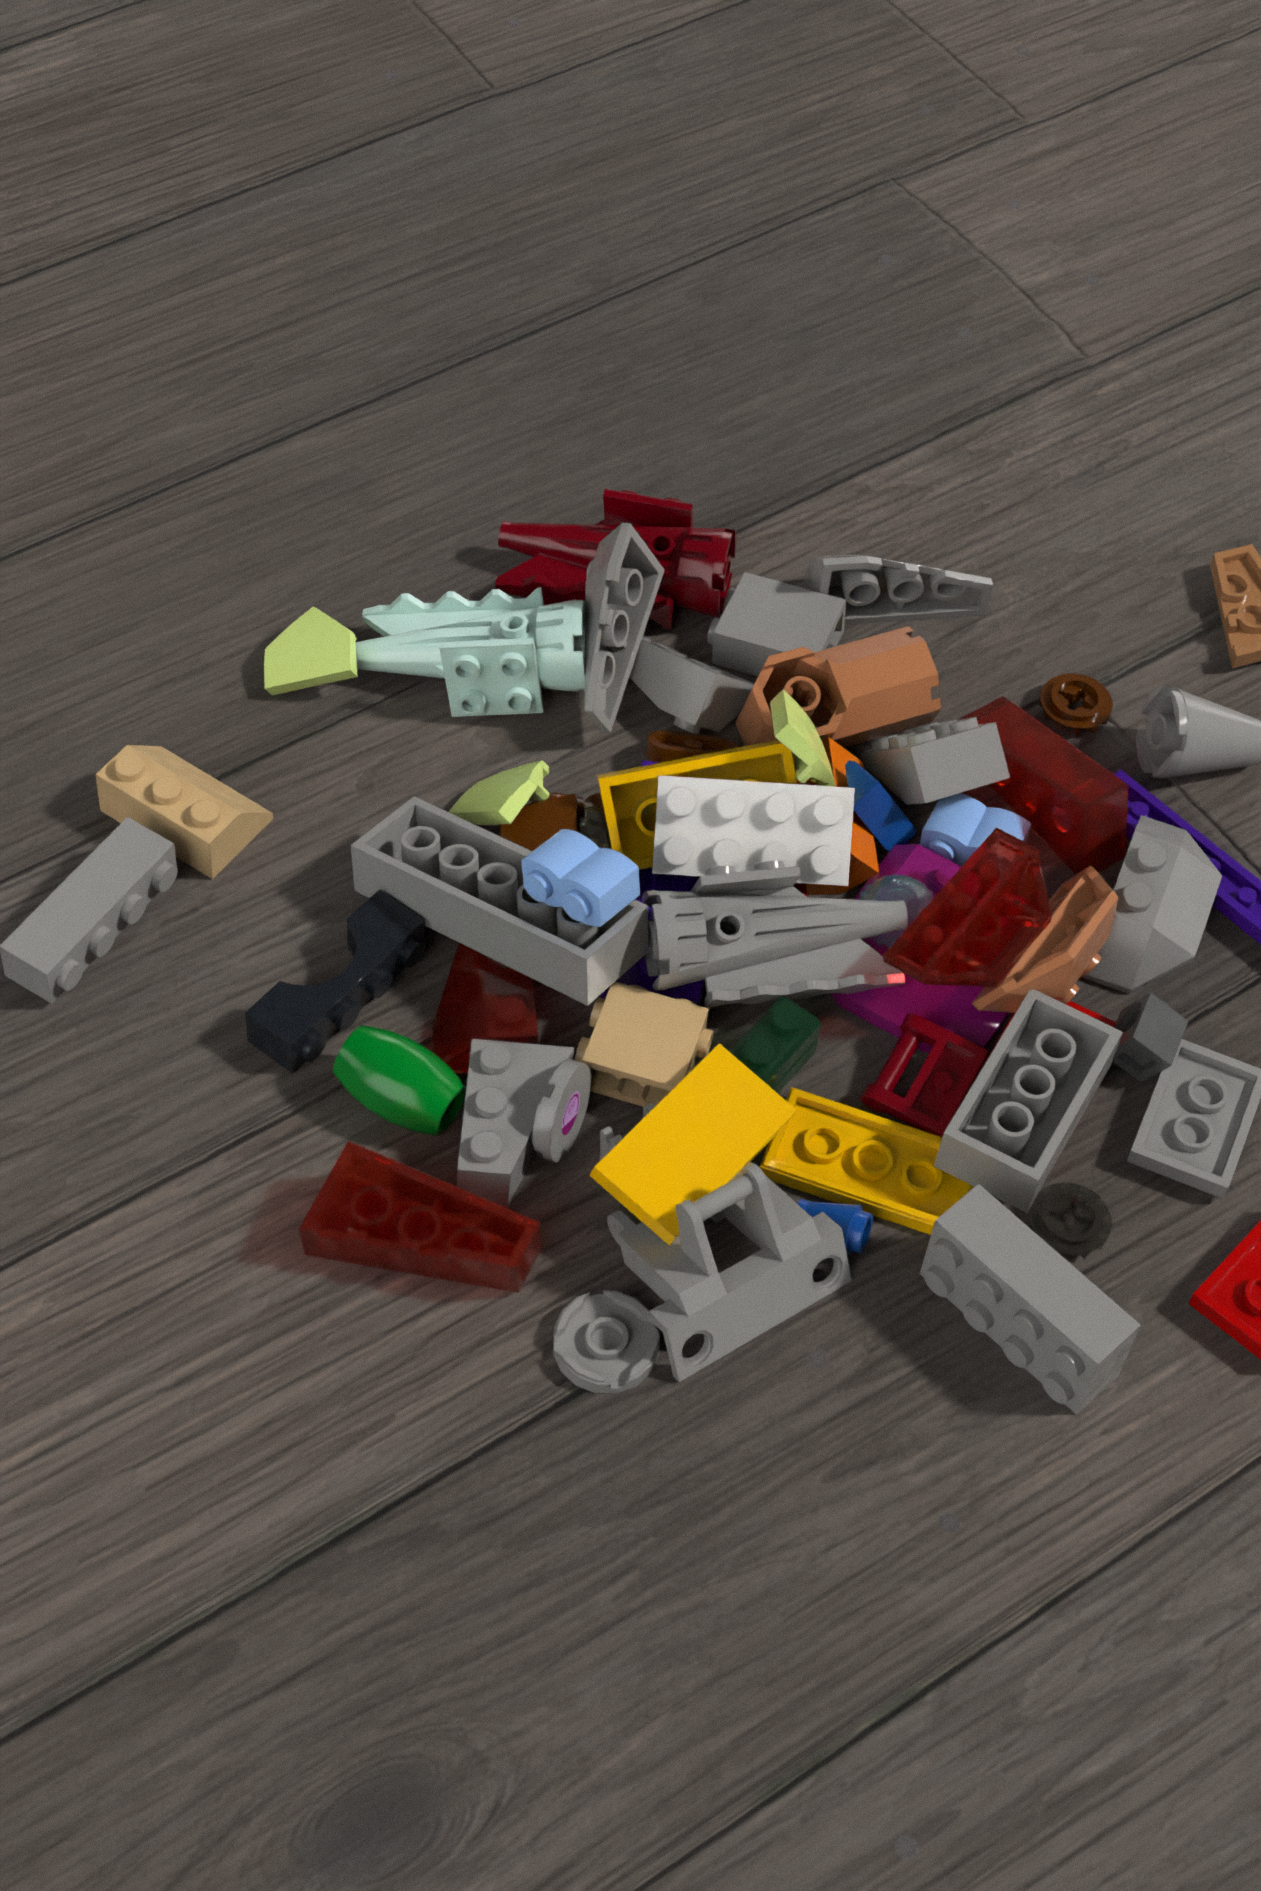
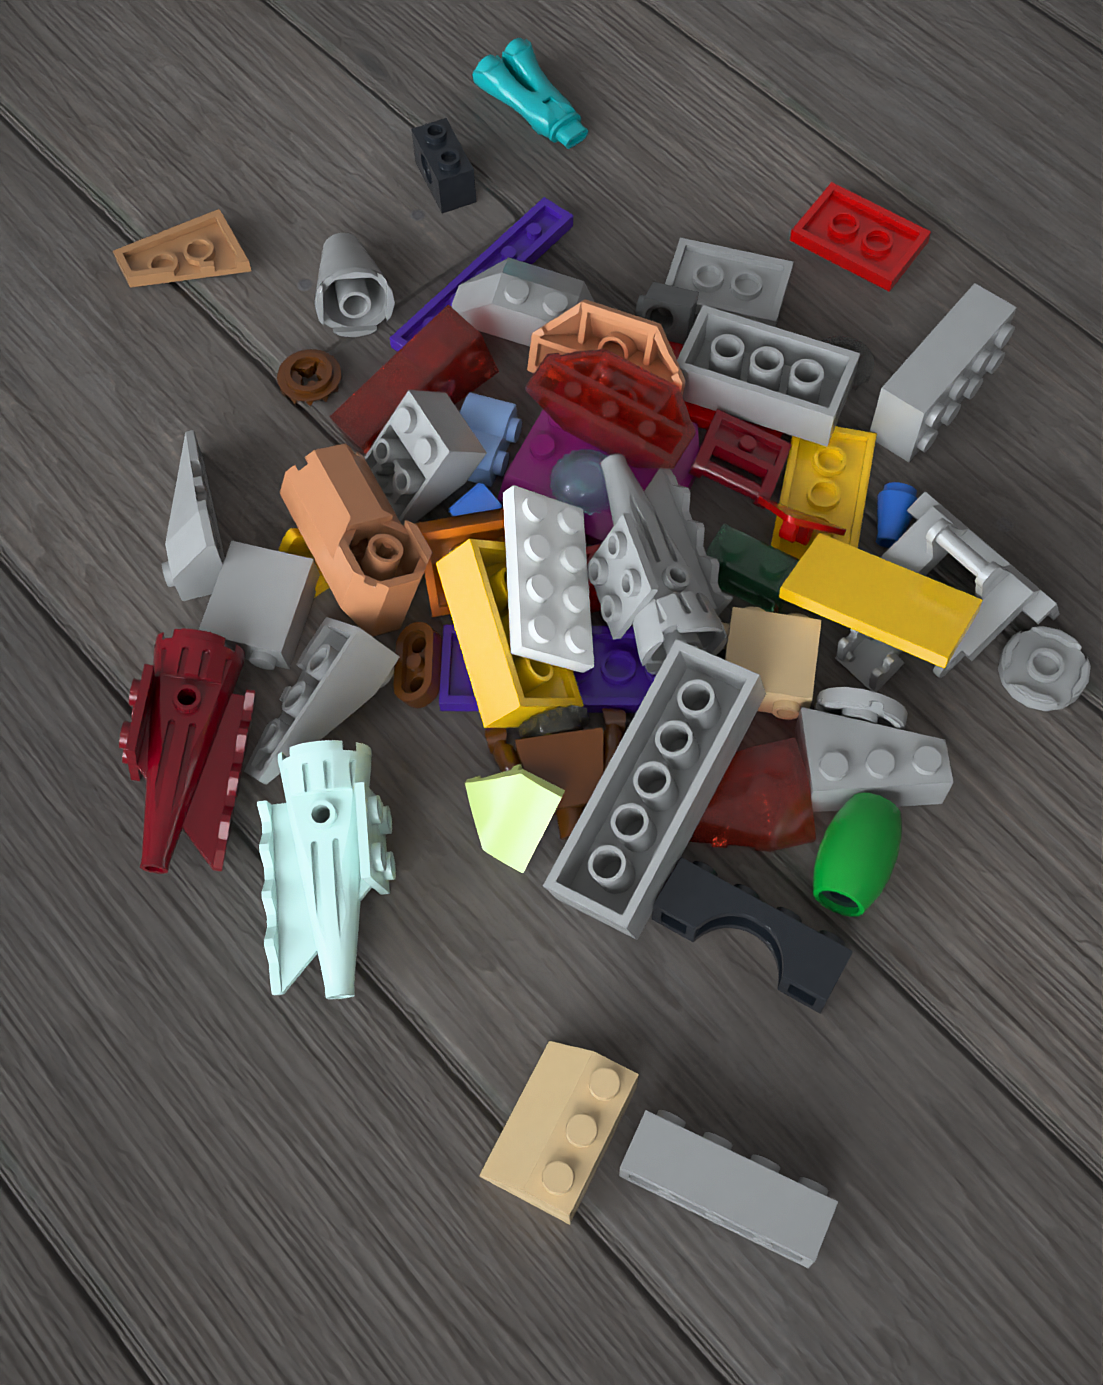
camera: 90 degrees left, 10 degrees up
(310, 654) = (343, 1034): yellowish green slope -> none
(417, 1225) = (999, 825): clear red wedge -> none
(580, 877) = (670, 690): light blue brick -> none
(617, 608) = (276, 723): light grey wedge -> none
(800, 736) = (442, 542): yellowish green slope -> none
(825, 1101) = (796, 524): none -> red piece

